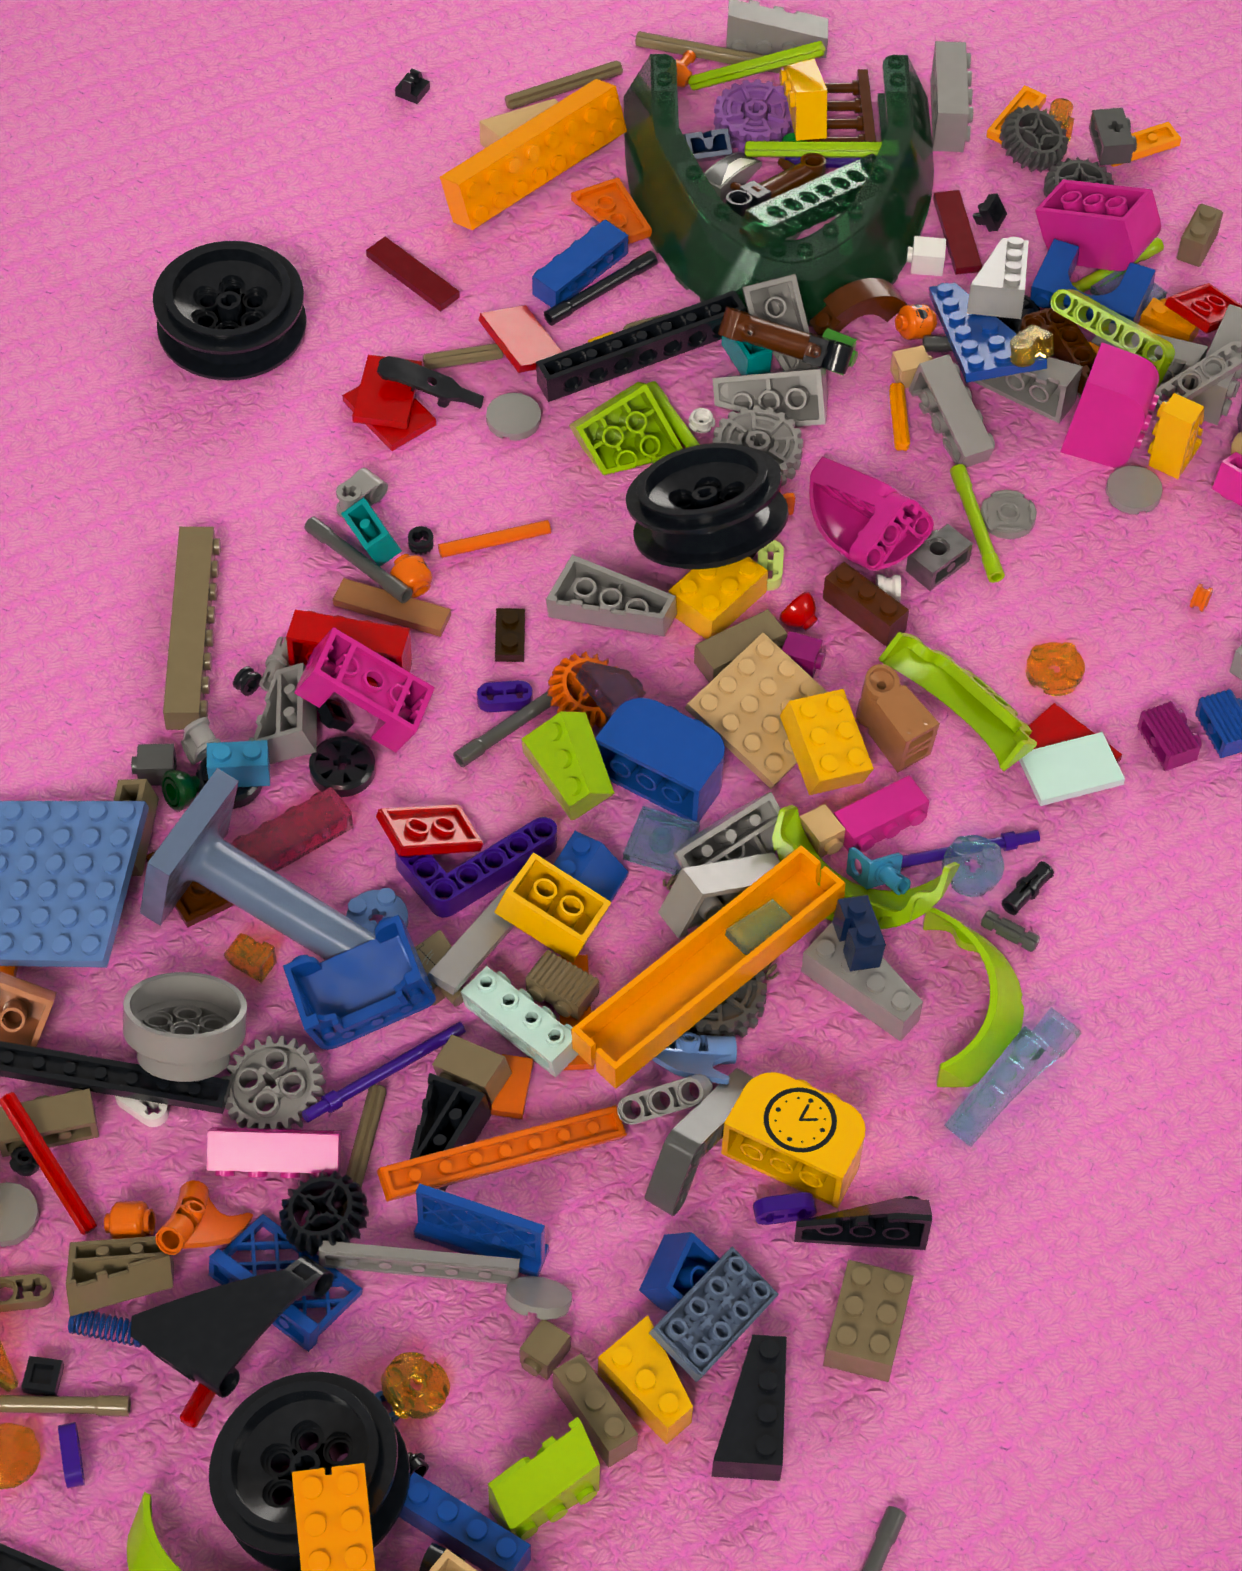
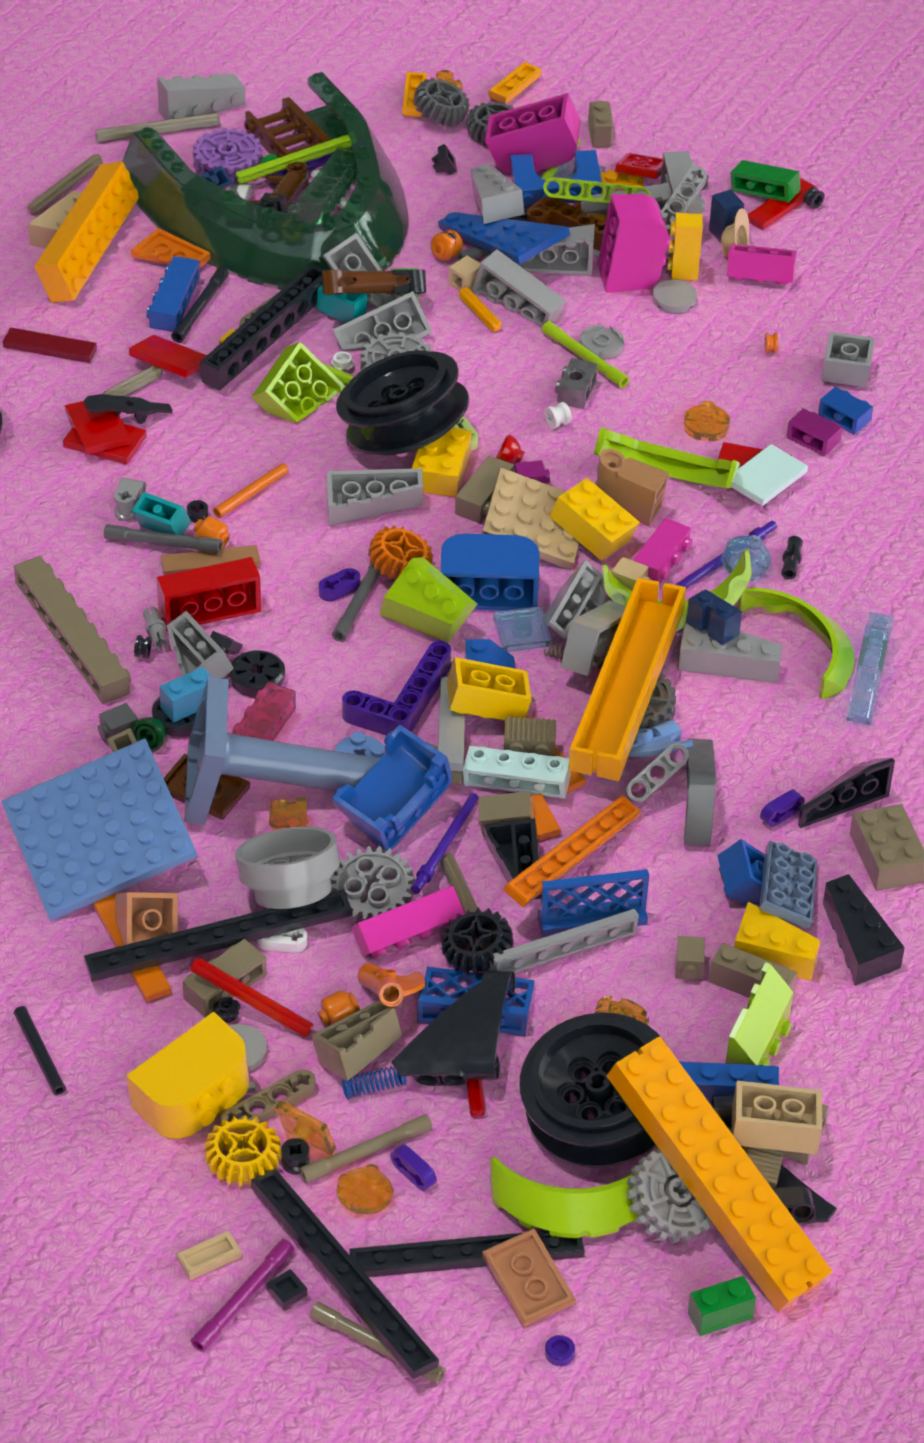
camera: 30 degrees left, 10 degrees down
(42, 1376) = (352, 1130): black plate -> none
(195, 739) = (143, 694): light grey piece -> none
(343, 666) = (223, 594): dark pink plate -> none
(429, 830) = (359, 681): red tile -> none
(510, 635) = (311, 546): dark brown plate -> none
(513, 416) = (201, 408): light grey tile -> none
(539, 1296) = (662, 927): light grey tile -> none
(609, 686) = (421, 540): clear purple slope -> none
(757, 65) = (217, 114): lime axle -> none
(757, 926) = (643, 641): clear light blue tile -> none
(796, 1135) = (763, 757): yellow brick -> none
(806, 99) = (264, 125): yellow wedge -> none
(855, 300) = (400, 243): reddish brown arch -> none
(865, 516) = (512, 371): dark pink panel -> none
(865, 603) = (550, 429): reddish brown brick -> none
(878, 871) = (691, 581): dark azure bracket -> none
(927, 255) = (422, 201): white brick -> none
(951, 96) = (364, 91): light grey brick -> none
(957, 232) = (429, 181): dark red tile -> none
(1010, 931) = (798, 587): dark grey axle -> none
(1030, 345) = (553, 220): clear yellow leg -> none
(1112, 136) = (496, 81): dark grey brick -> none

